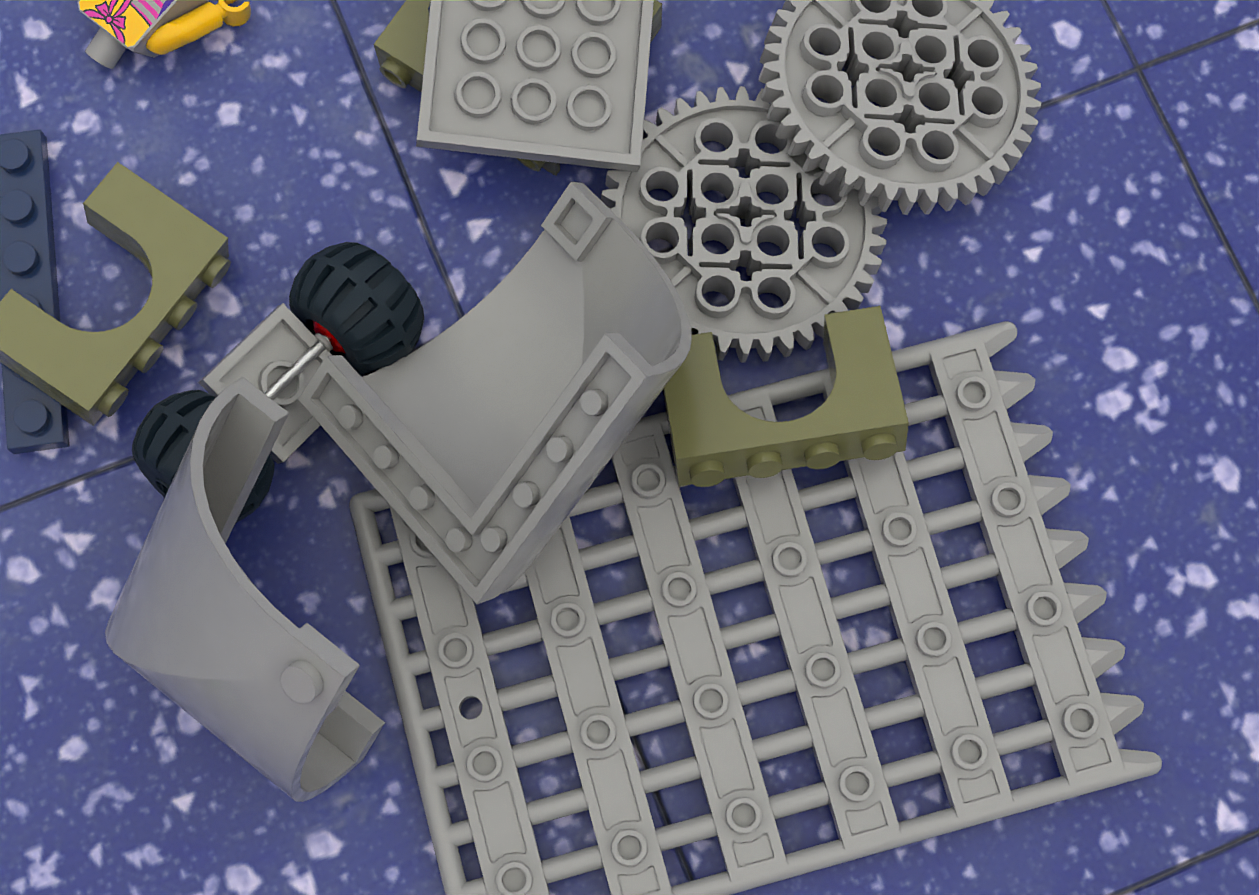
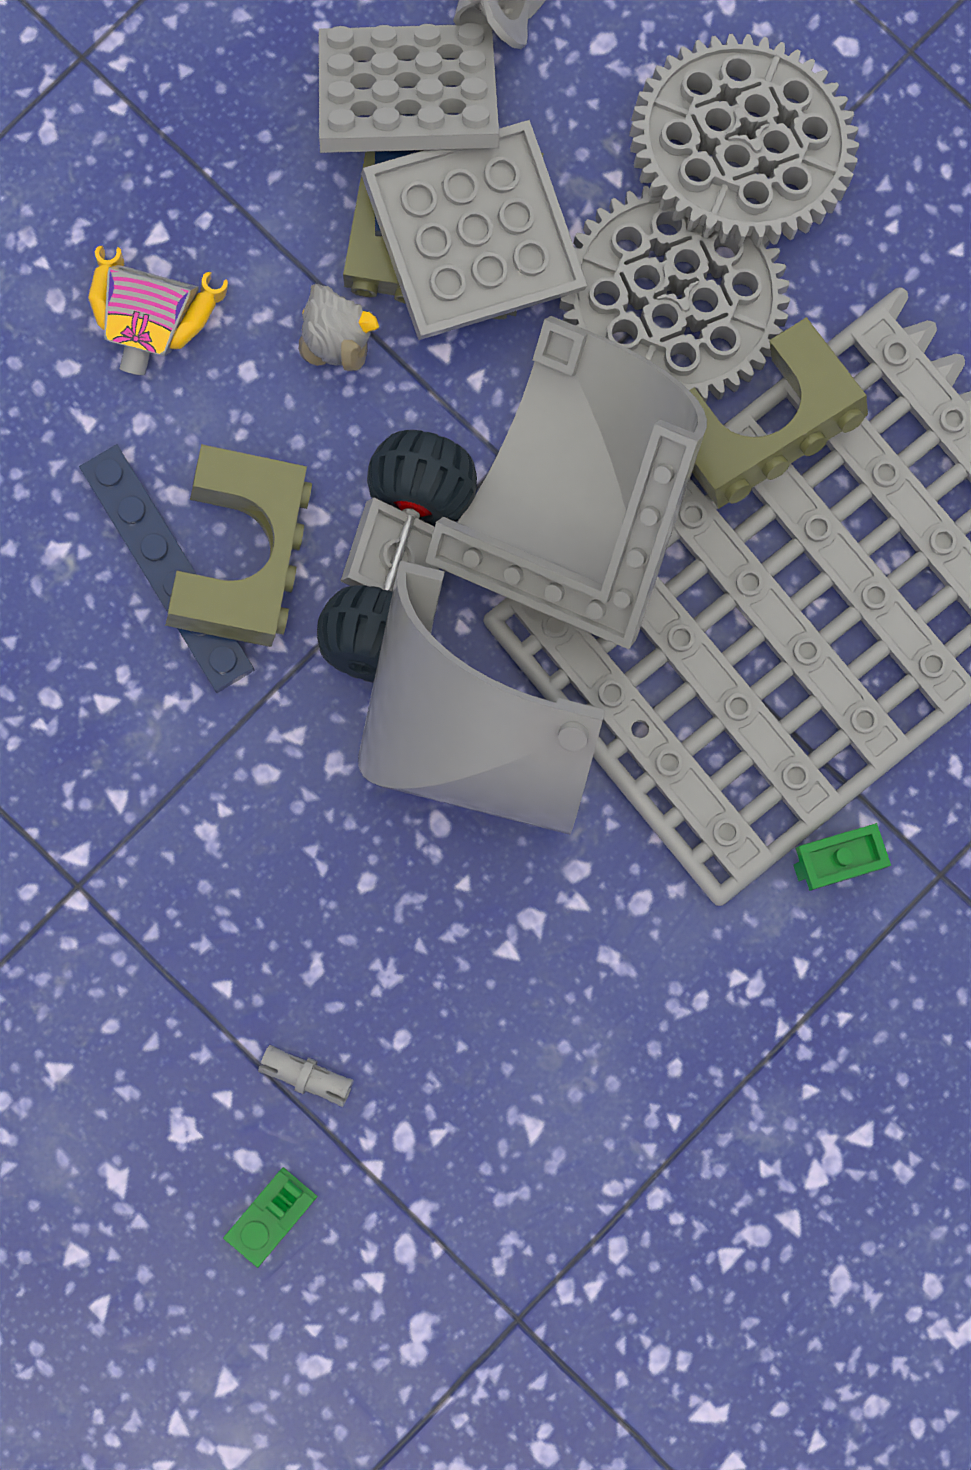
camera: 30 degrees left, 5 degrees up
(334, 101) = (335, 330): none -> light grey hair

